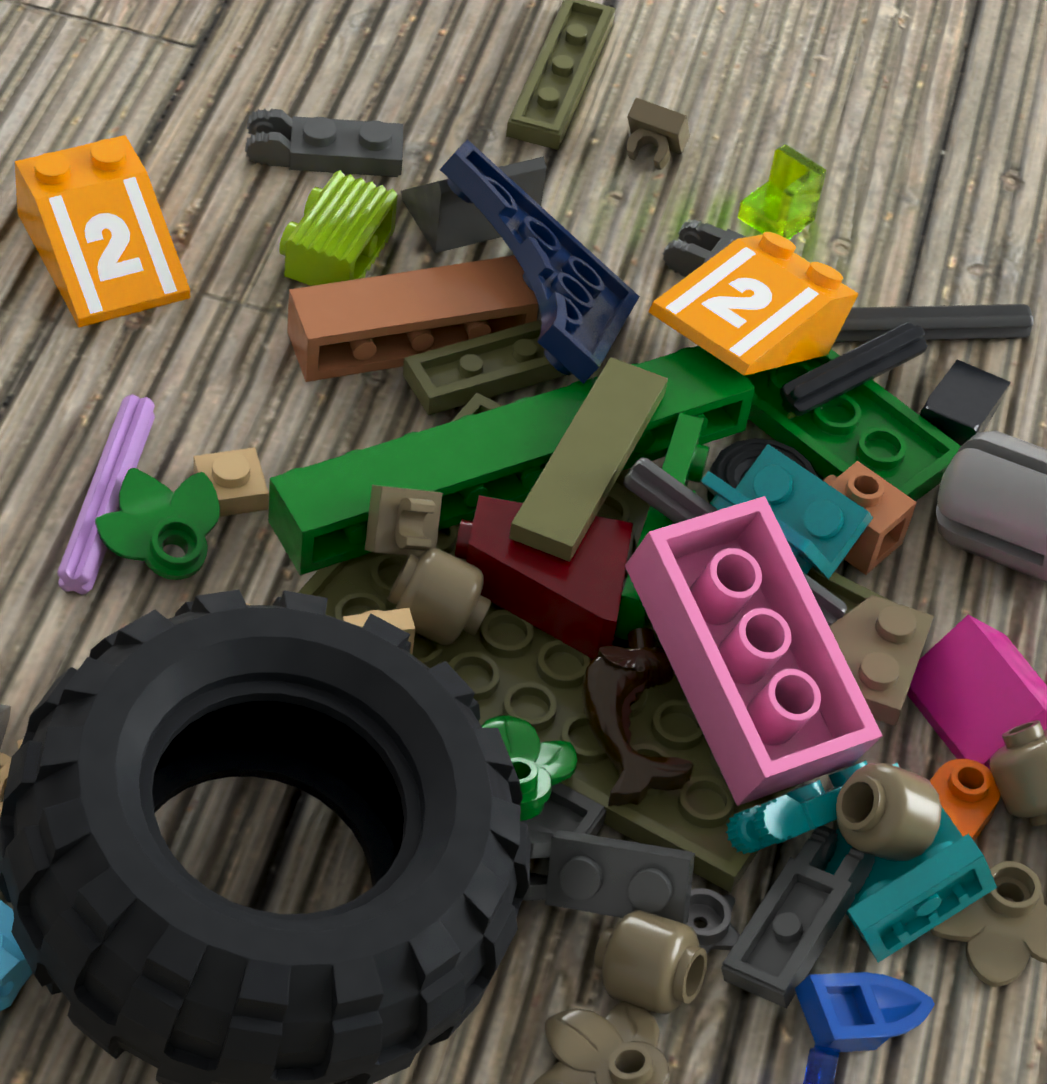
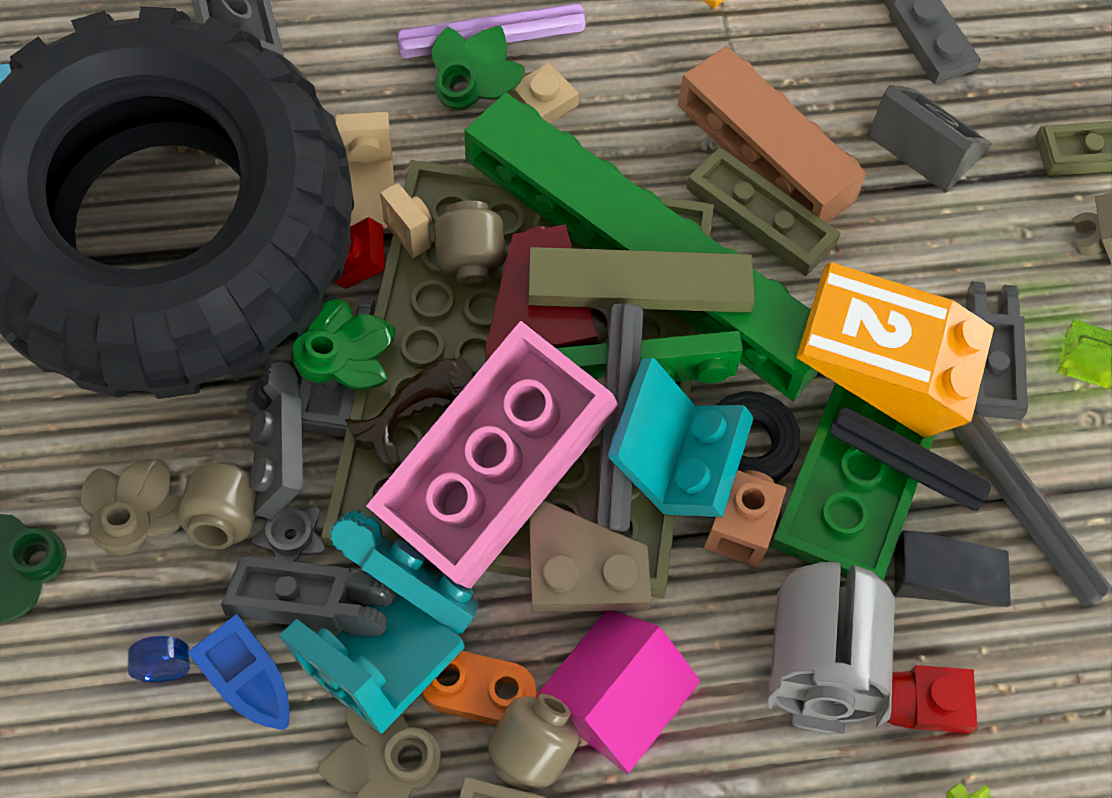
camera: 70 degrees right, 15 degrees up
(339, 231) = (826, 63): lime brick -> none
(402, 520) = (512, 187): dark tan tile -> none
(576, 292) = (861, 206): dark blue plate -> none
(888, 812) = (393, 616): dark tan head -> none

